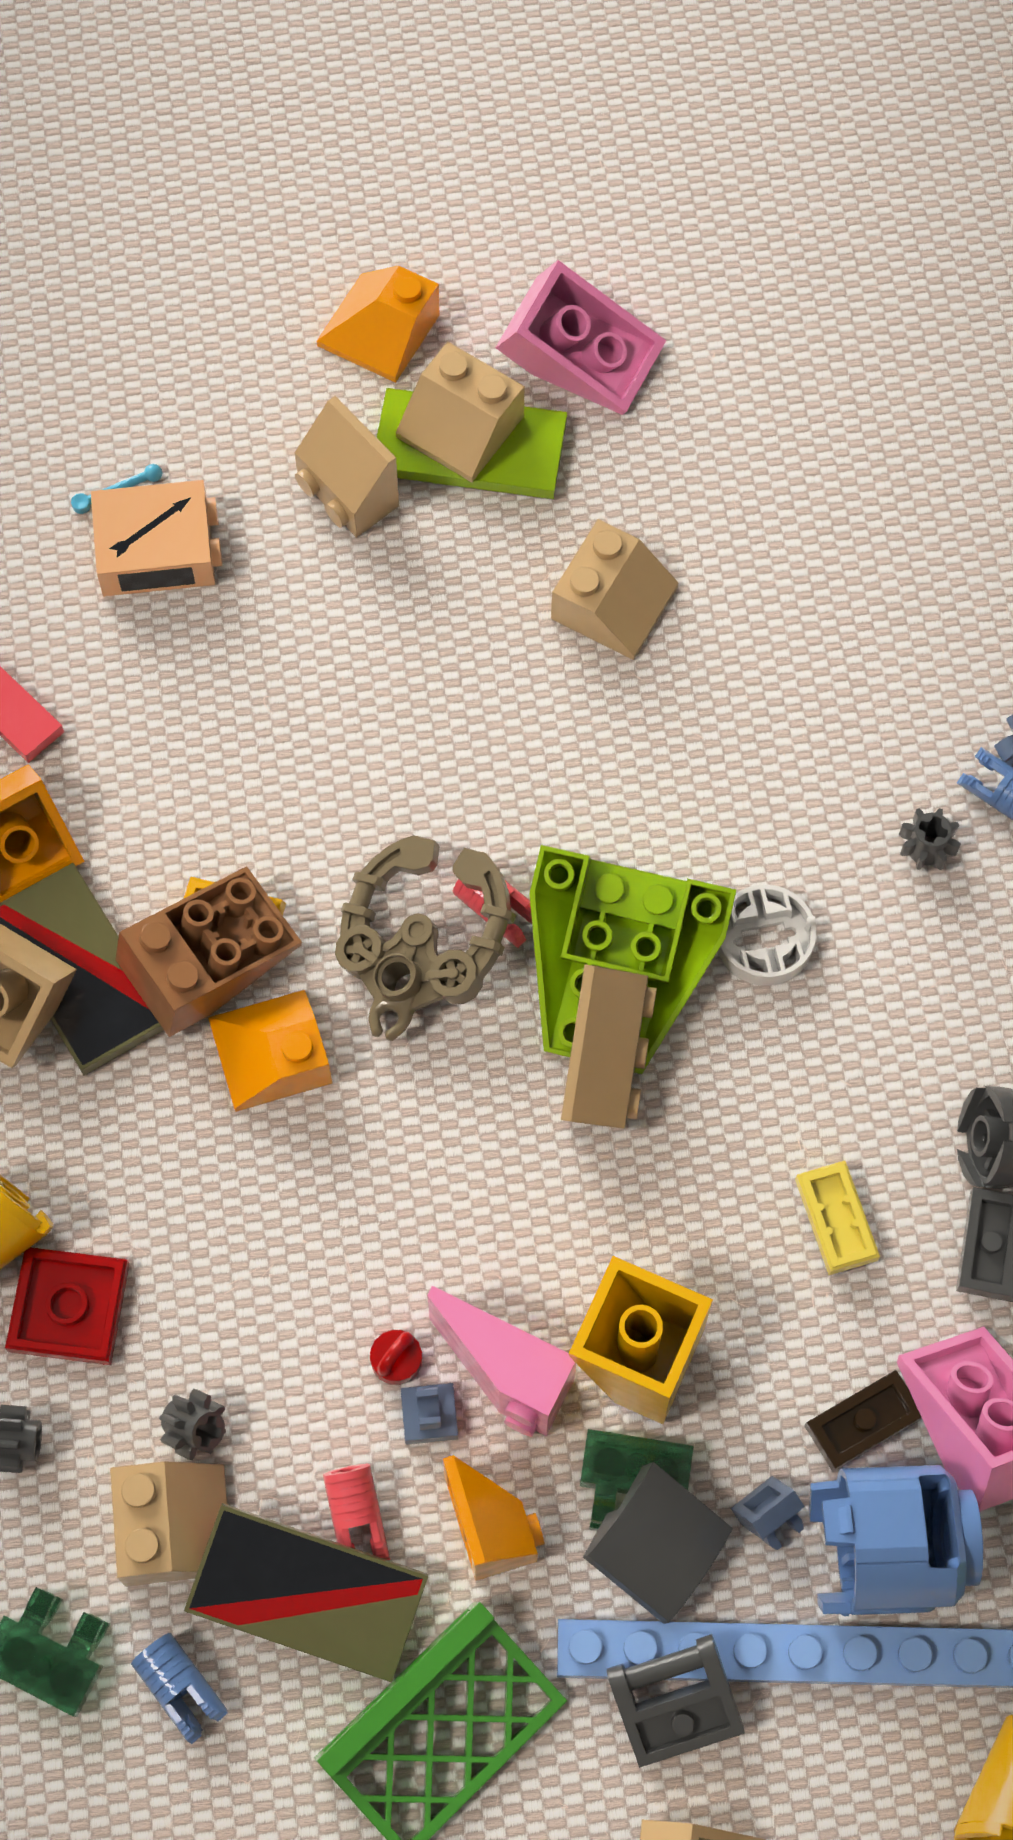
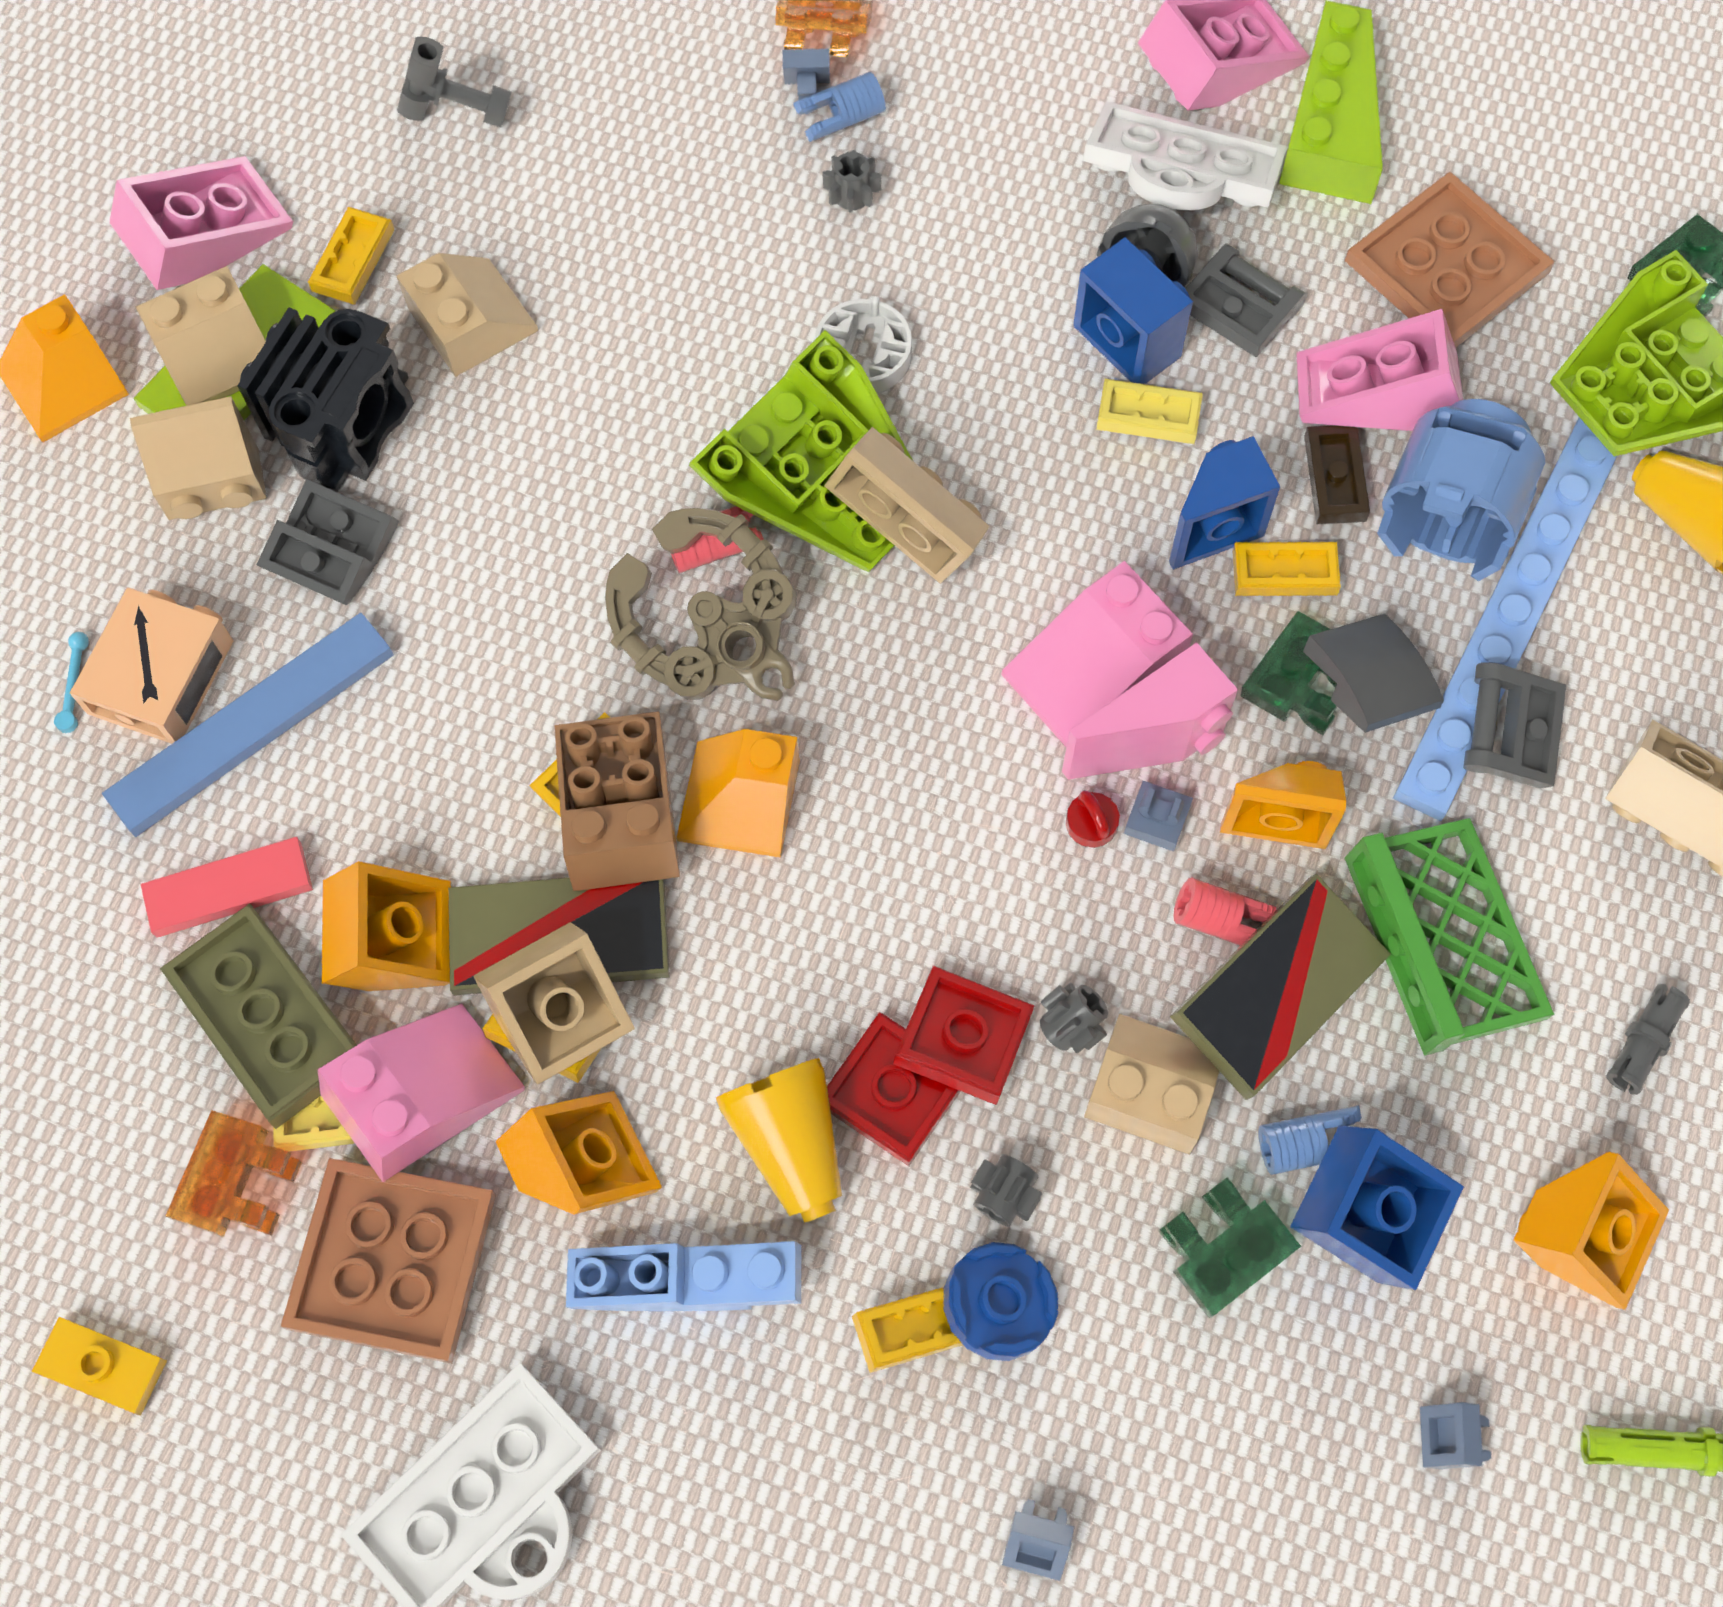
camera: 60 degrees left, 0 degrees up
(128, 1765) = (1377, 1206): none -> blue brick
(137, 1339) = (964, 1035): none -> red tile
(146, 637) = (247, 724): none -> medium blue tile
(336, 606) = (328, 543): none -> dark grey slope
(458, 529) = (327, 393): none -> black piece
(540, 1277) = (1096, 650): none -> bright pink slope
(615, 474) = (351, 255): none -> yellow plate
(640, 1337) = (1209, 580): yellow slope -> none
(737, 1417) = (1286, 569): none -> yellow plate
(761, 1322) = (1226, 502): none -> blue slope
(768, 1509) = (1379, 580): sand blue tile -> none
(806, 441) = (428, 83): none -> dark grey bar
(917, 1154) = (1132, 312): none -> blue brick

